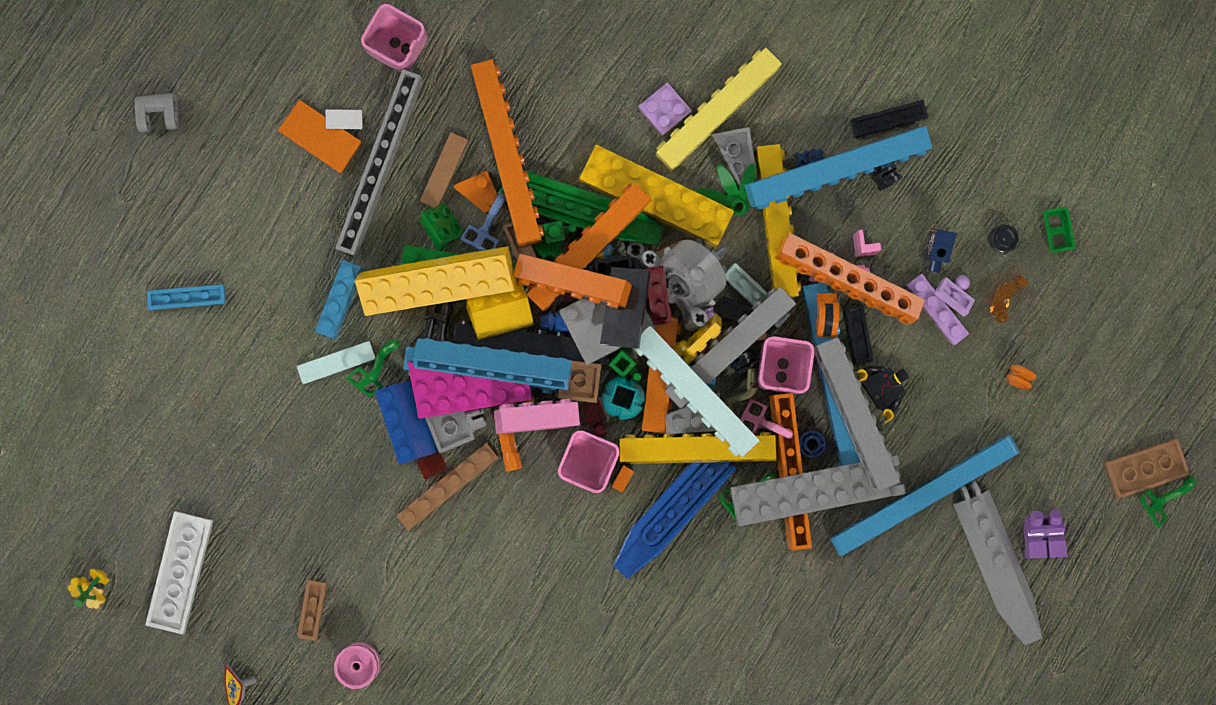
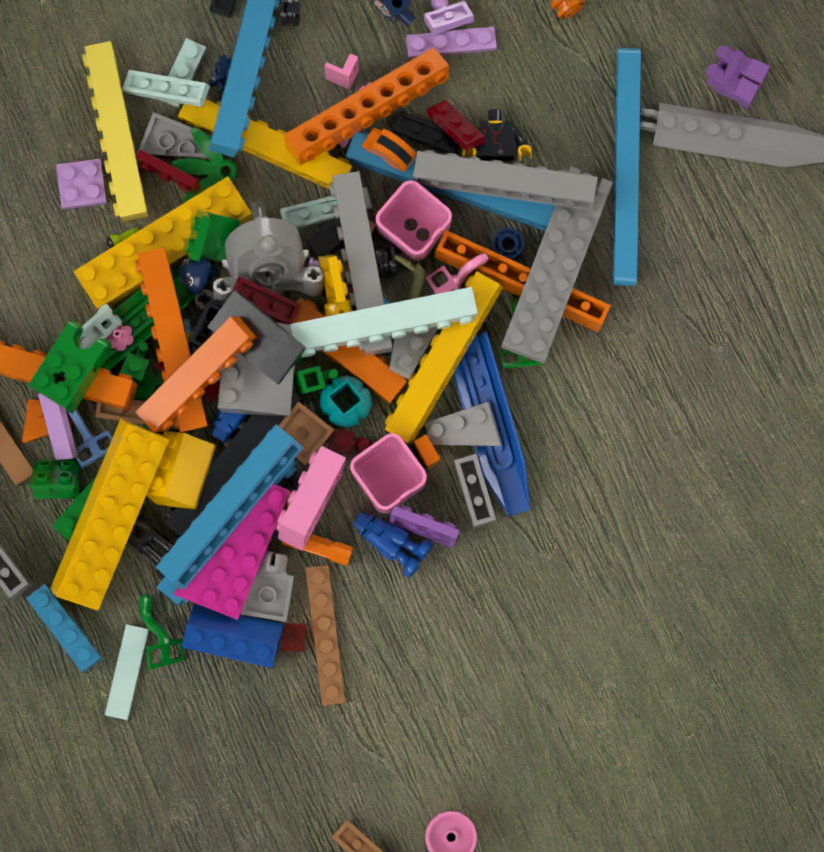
camera: 60 degrees left, 5 degrees down
(479, 203) = (58, 429): none -> lavender tile
(525, 190) = (73, 363): none -> green brick
(544, 491) = (389, 540): none -> blue piece
(558, 185) = (94, 330): none -> light aqua plate
(567, 510) = (424, 526): none -> medium lavender plate
(569, 211) = (123, 339): none -> bright pink plant
(614, 531) = (474, 491): none -> light grey brick
(639, 159) = (114, 239): none -> lime piece
(648, 232) = (196, 274): none -> dark blue piece
(657, 496) = (467, 427): none -> light grey wing
(681, 225) = (209, 236): none -> green bracket
(710, 165) = (167, 172): none -> dark red plate
(771, 125) = (165, 88): none -> light aqua plate
(791, 129) = (187, 63): none -> light aqua plate
(876, 352) = (456, 125): none -> dark red plate

